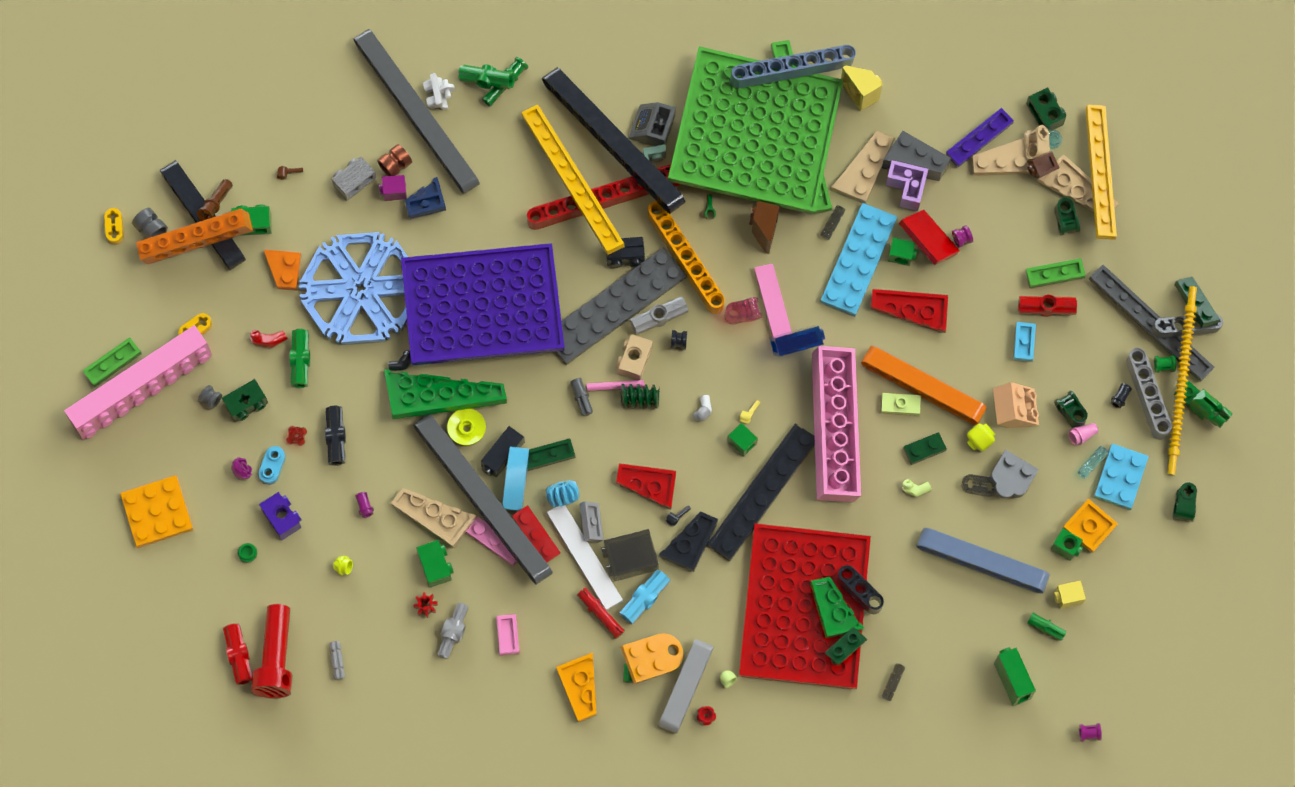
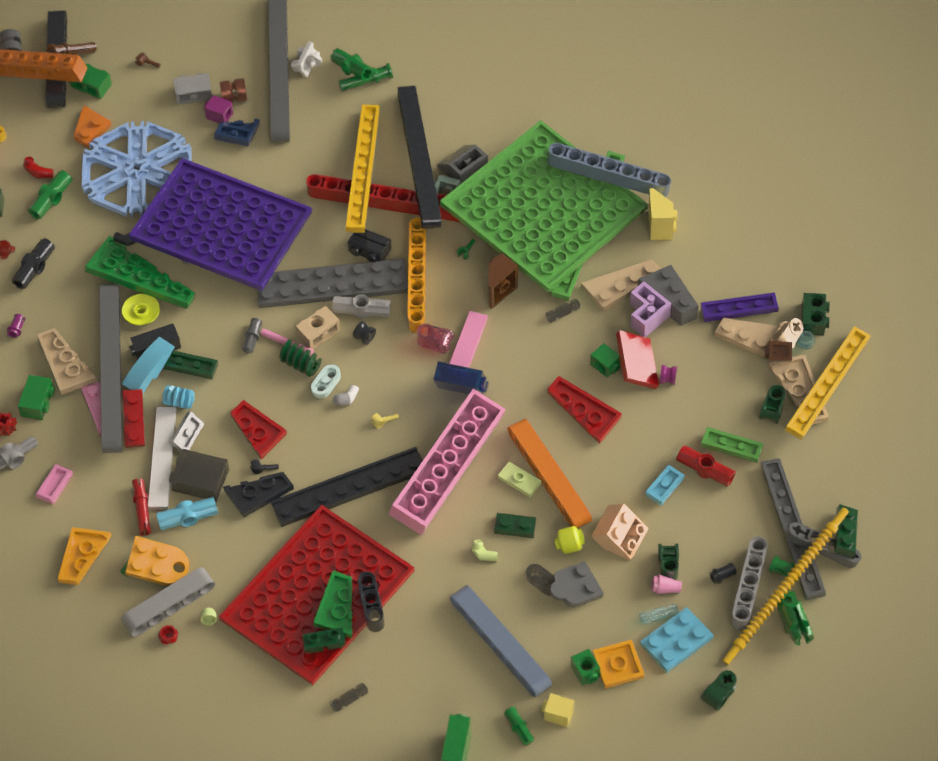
camera: 35 degrees right, 15 degrees down
(677, 405) = (325, 383): none -> light aqua plate
(742, 439) = (360, 435): green panel -> none
(858, 259) = (563, 350): medium azure plate -> none

